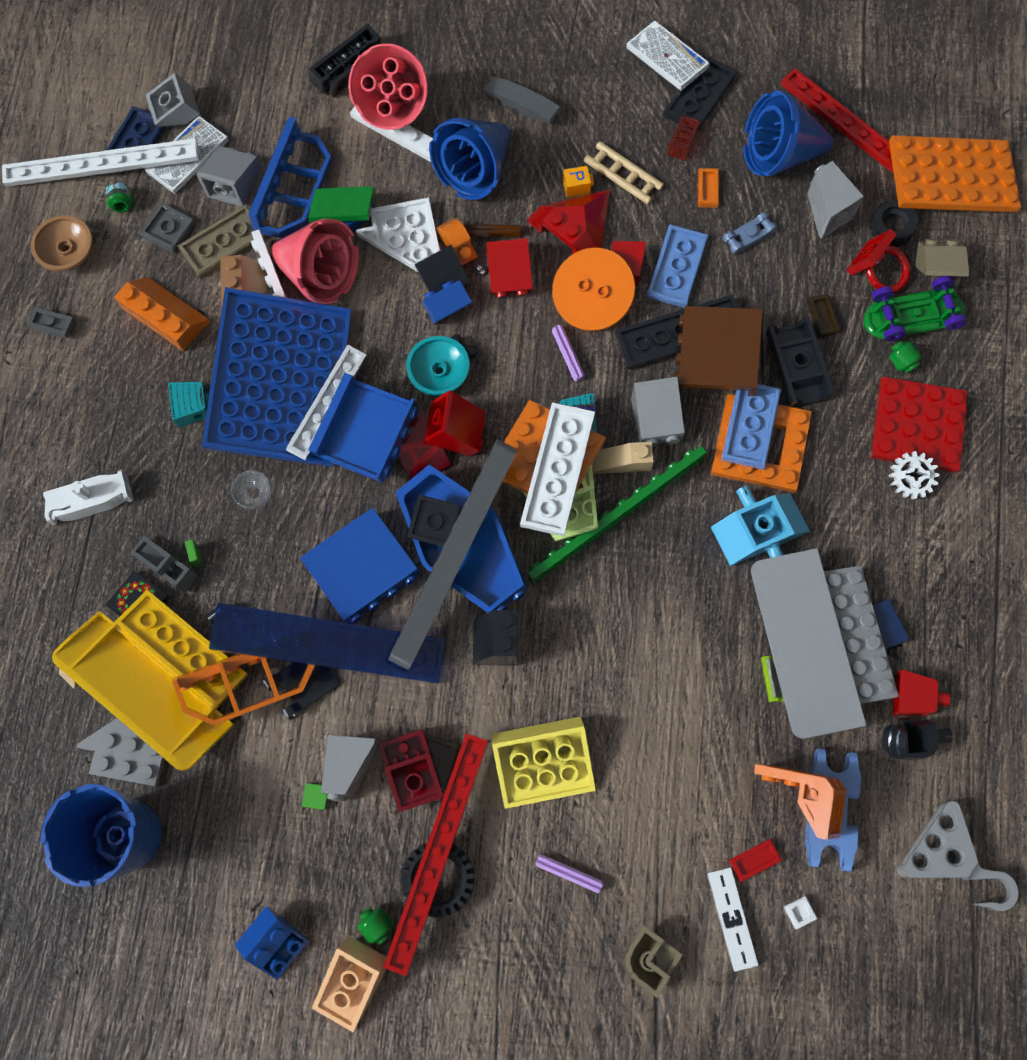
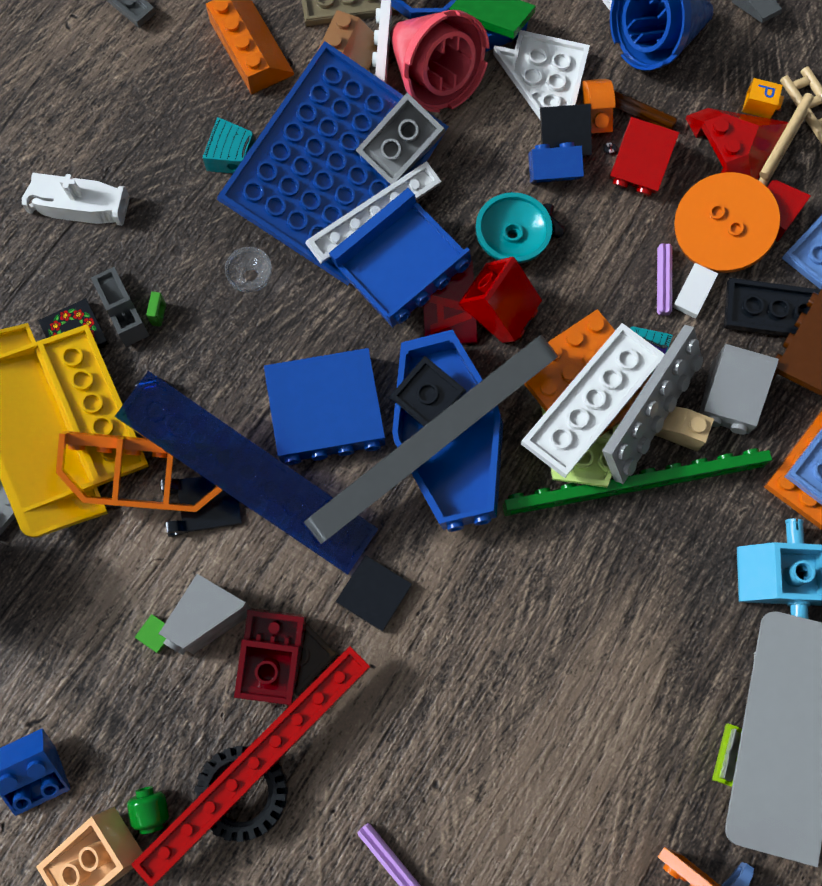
camera: 20 degrees right, 0 degrees up
(320, 337) = (401, 139): none -> light grey slope
(464, 687) = (373, 593): none -> black tile
(496, 638) = (434, 556): black slope -> none
(543, 762) = (421, 720): light yellow slope -> none
(594, 351) = (695, 290): none -> white tile
(603, 452) = (653, 405): none -> light grey plate
(608, 207) = (785, 139): none -> tan bar

